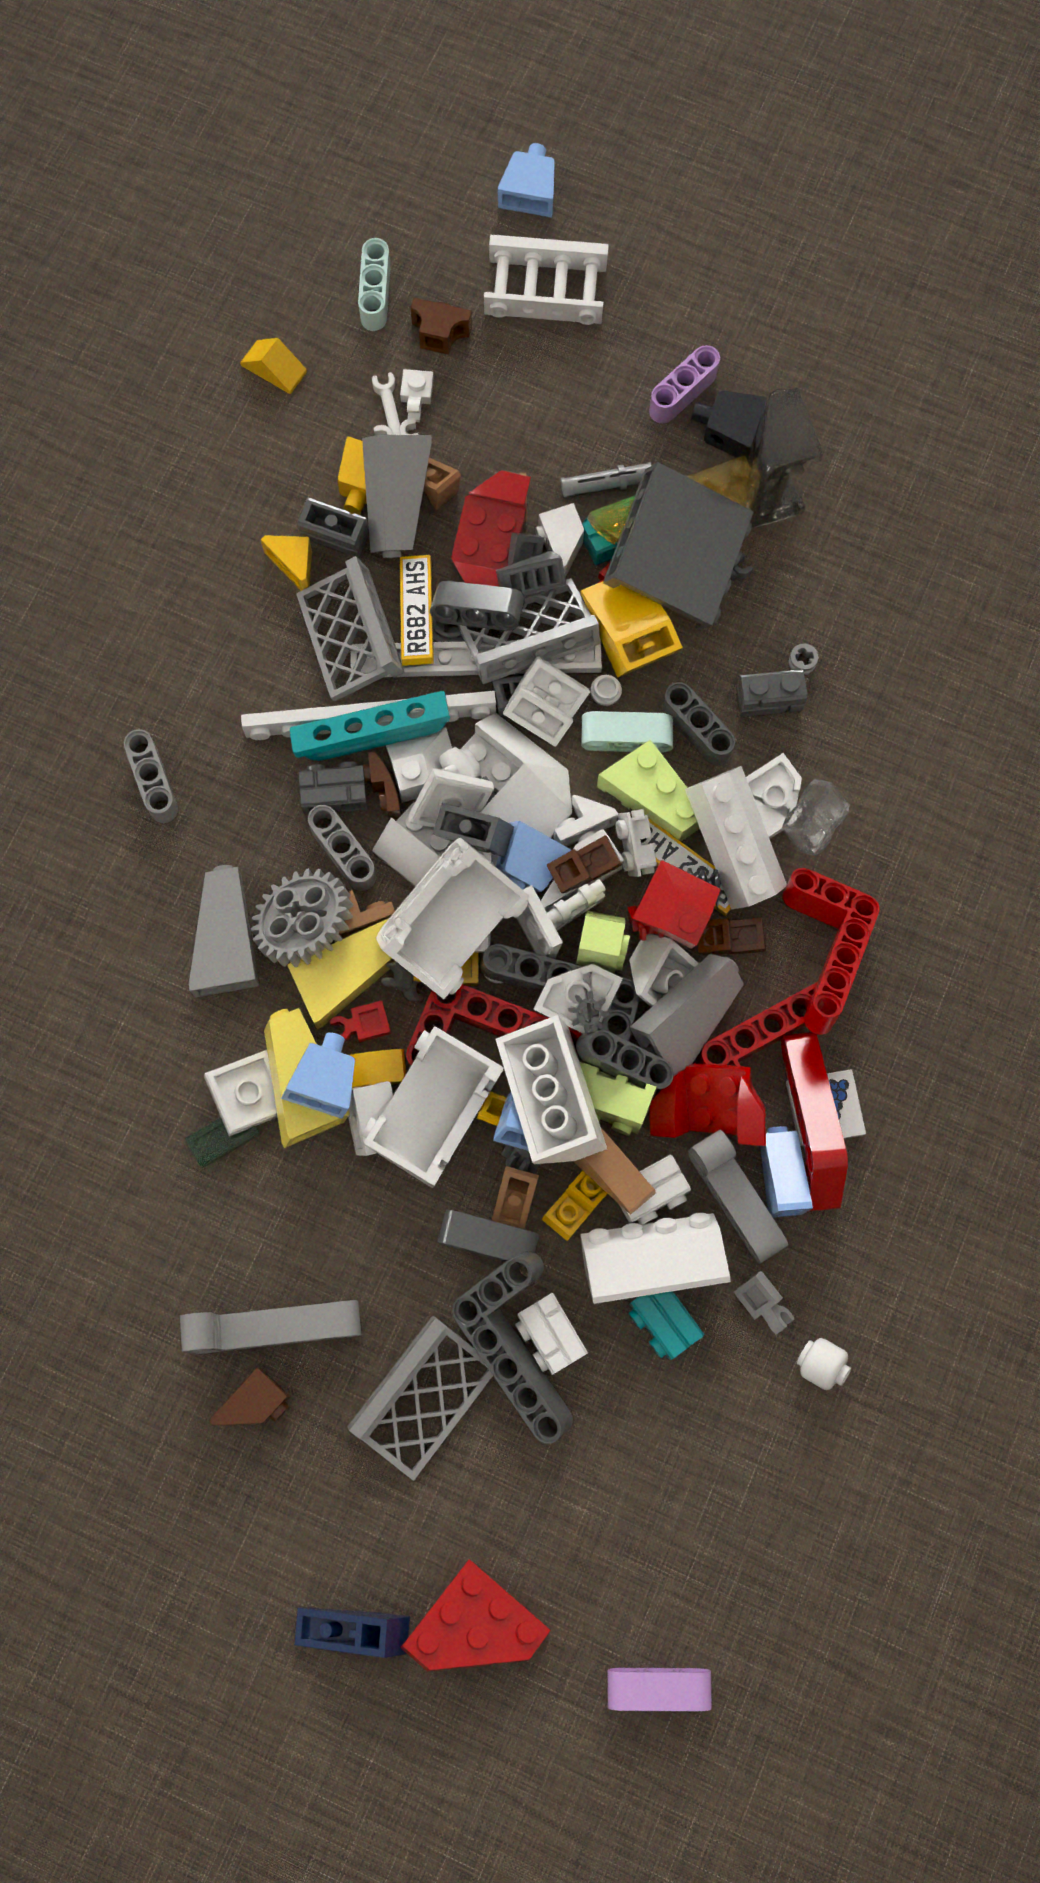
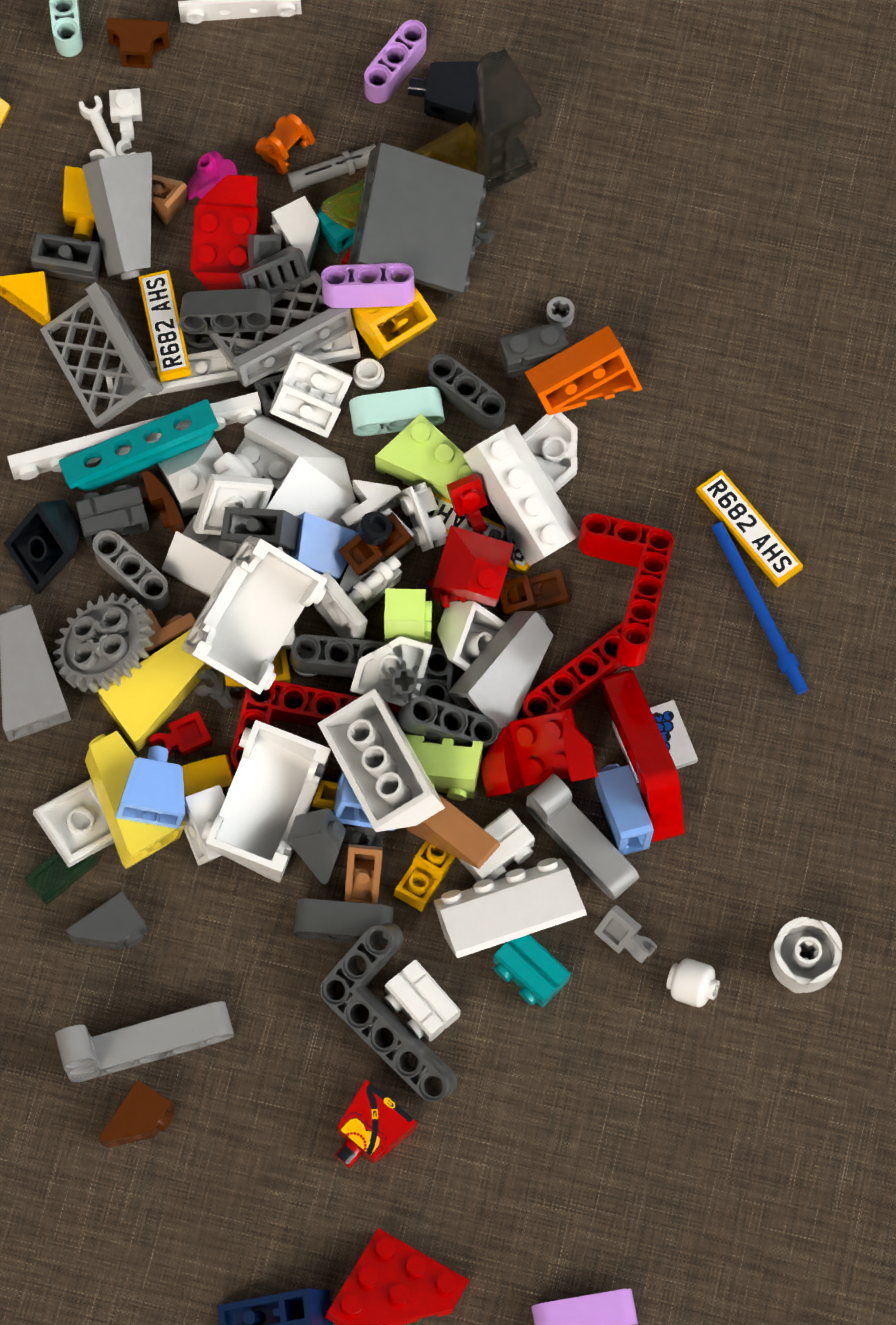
camera: 10 degrees left, 5 degrees down
(260, 1202) = (110, 926): none -> dark grey slope
(263, 805) = (44, 542): none -> black slope
(397, 1381) = (279, 1069): light grey fence -> none
(475, 1156) = (317, 841): none -> dark grey slope
(480, 1455) = (372, 1126): none -> torso
(487, 463) = (209, 172): none -> dark pink plate
(568, 437) = (286, 134): none -> orange piece
(586, 849) = (375, 528): none -> black tile
(620, 603) = (368, 285): none -> lavender beam
(681, 833) = (467, 498): none -> red plate
(815, 817) = (597, 462): clear brick -> none
(817, 724) = (582, 373): none -> orange wedge
(954, 907) = (749, 528): none -> tile
(958, 1368) = (807, 936): none -> white brick
(970, 1050) = (786, 661): none -> blue bar

